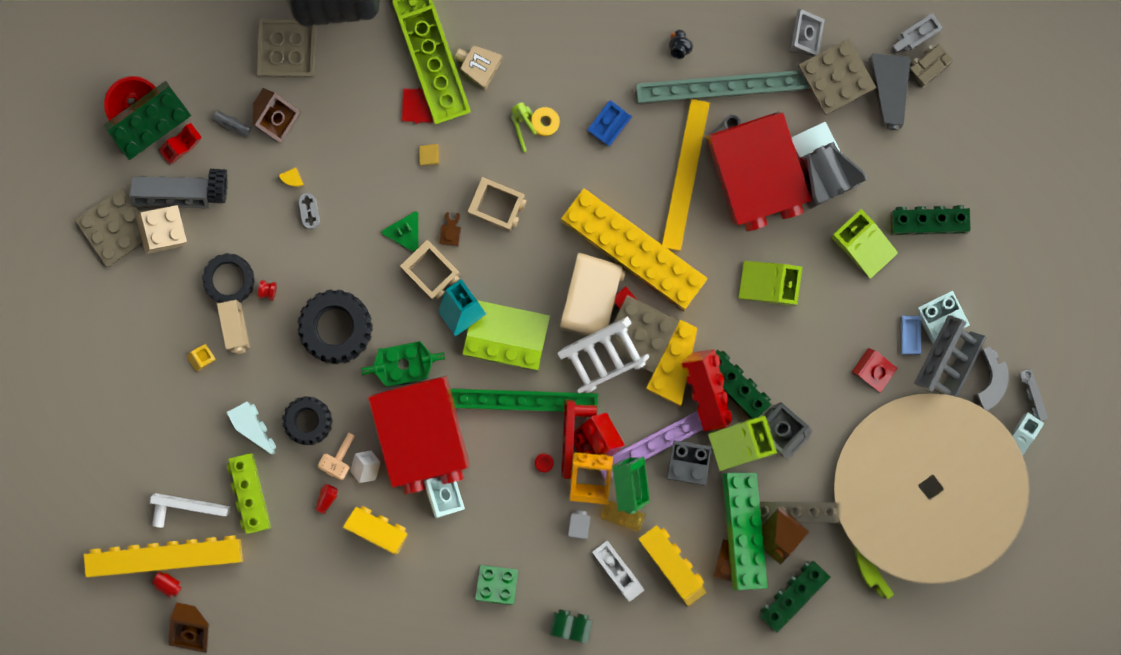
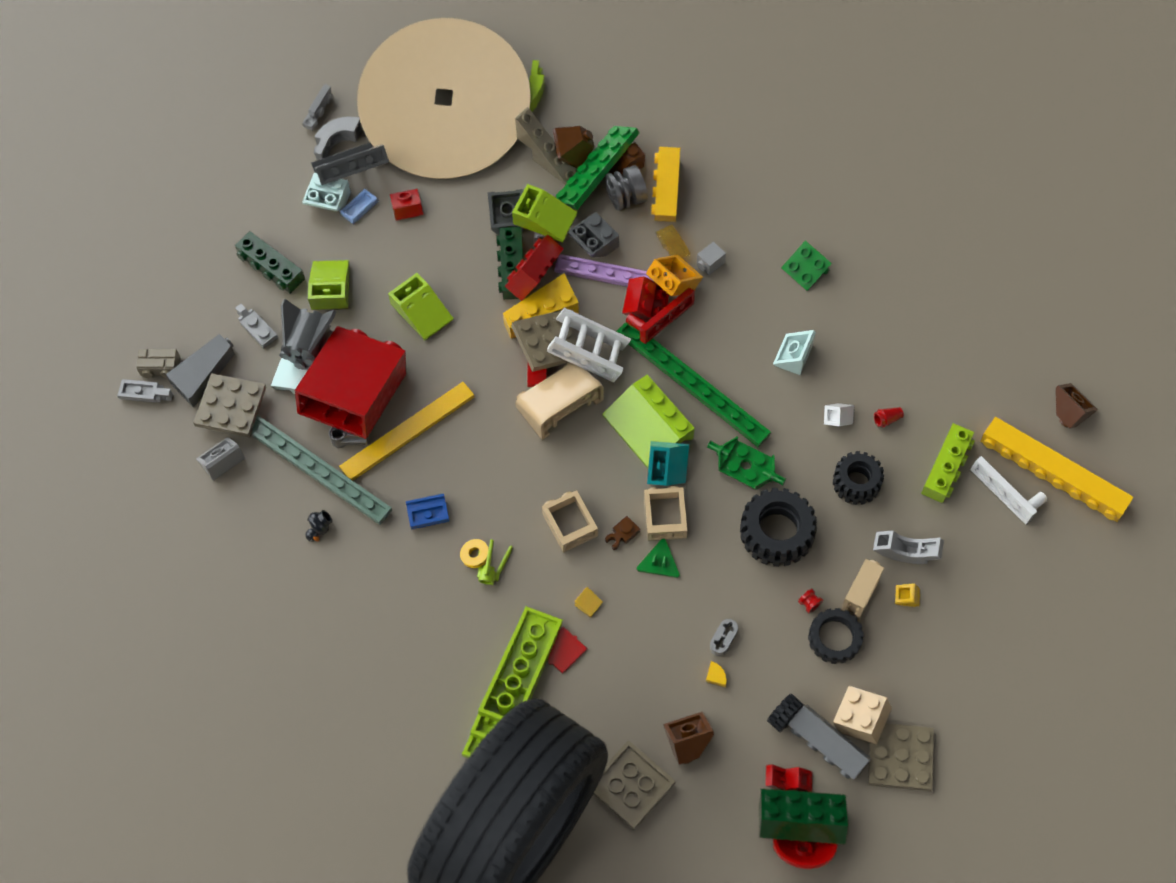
camera: 140 degrees left, 20 degrees down
(167, 584) = (1067, 447): red brick -> none
(226, 392) = (907, 549): none -> light grey arch
(231, 124) = (730, 760): dark grey pin -> none
(247, 423) = (909, 511): light aqua slope -> none
(334, 466) = (862, 432): light nougat piece -> none
(376, 529) = (868, 361): yellow slope -> none
(420, 434) = (776, 397): red brick -> none
(479, 65) = (485, 637): tan torso -> none
(544, 463) = (698, 319): red tile -> none
(571, 627) = (775, 201): dark green brick -> none
(618, 571) = (709, 211): white slope -> none
(631, 484) = (648, 249): green window -> none
(634, 249) = (497, 407): yellow brick -> none
(702, 530) = (627, 187): none -> flat silver wheel
(795, 596) = (600, 110): dark green brick -> none
(887, 160) = (255, 326): none -> light grey hinge
(1026, 431) = (345, 89): light aqua slope -> none

